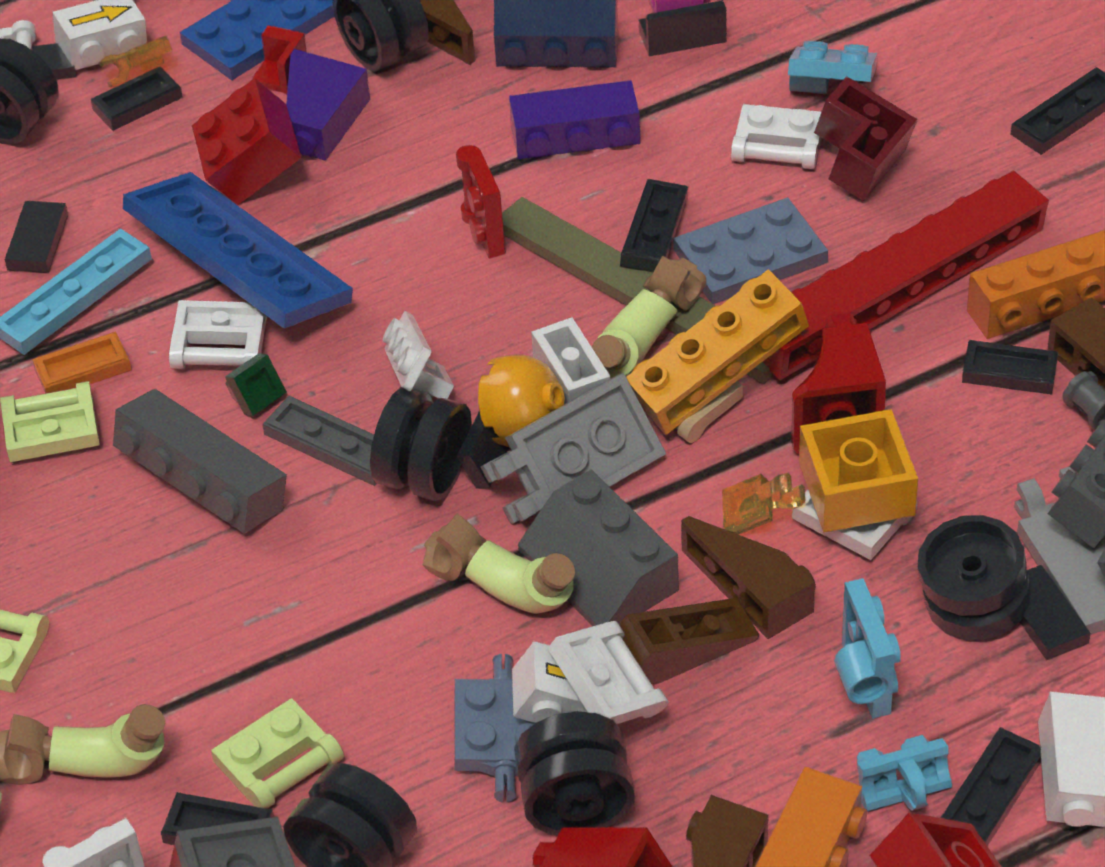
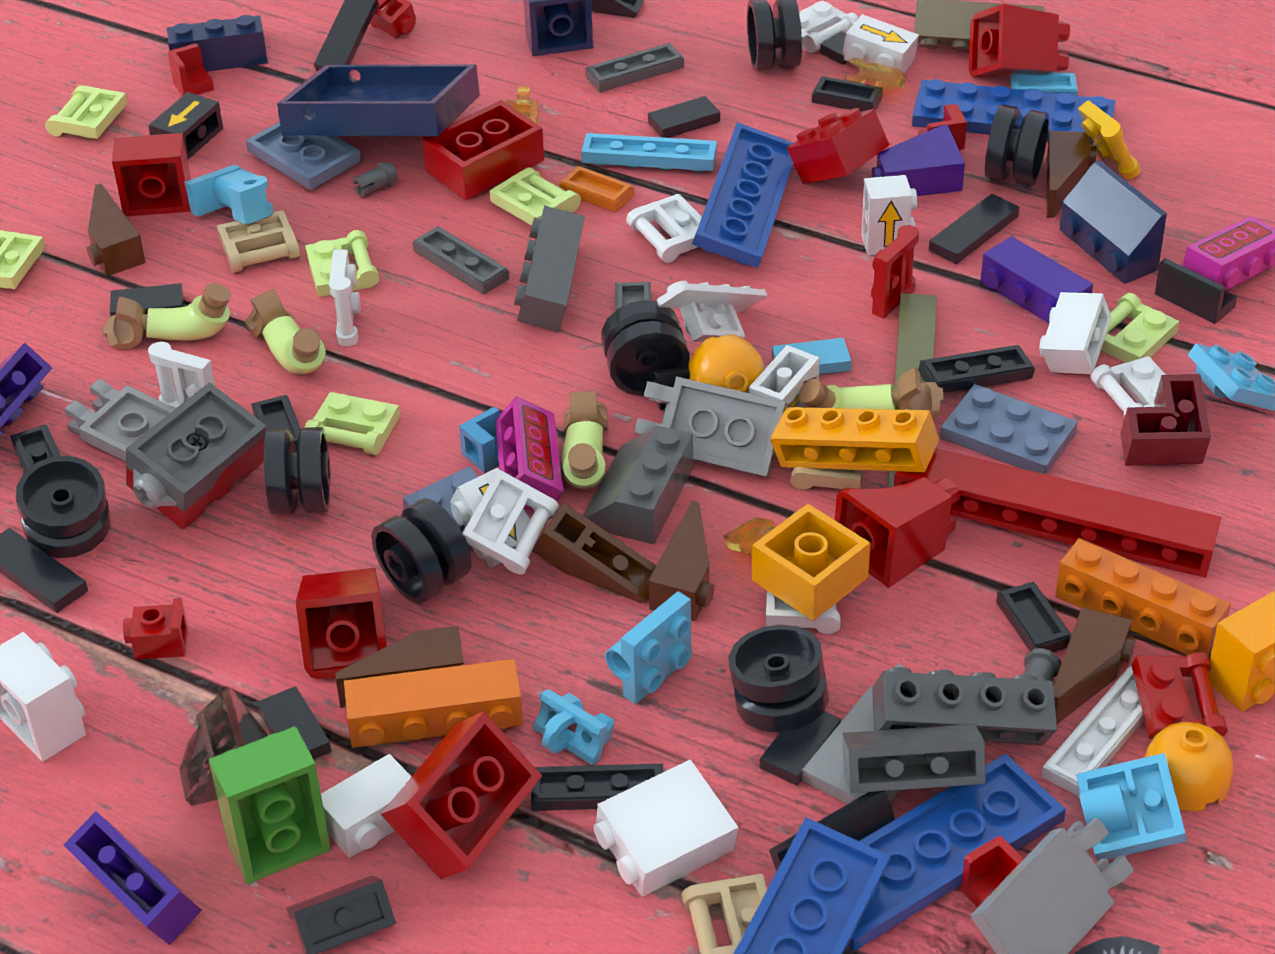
camera: 55 degrees right, 5 degrees down
(71, 656) = (347, 303): none -> white plate
(85, 535) = (461, 260): none -> dark grey tile
(255, 384) = (641, 261): dark green tile -> none
(389, 163) = (885, 209): none -> white brick
(423, 652) = (480, 440): none -> dark azure panel
(441, 117) = (973, 228): none -> black tile
(482, 615) = (530, 447): none -> dark pink brick
(515, 330) = (832, 354): none -> medium azure tile
(683, 129) = (1075, 333): none -> white brick
(703, 91) = (1141, 336): none -> yellowish green plate

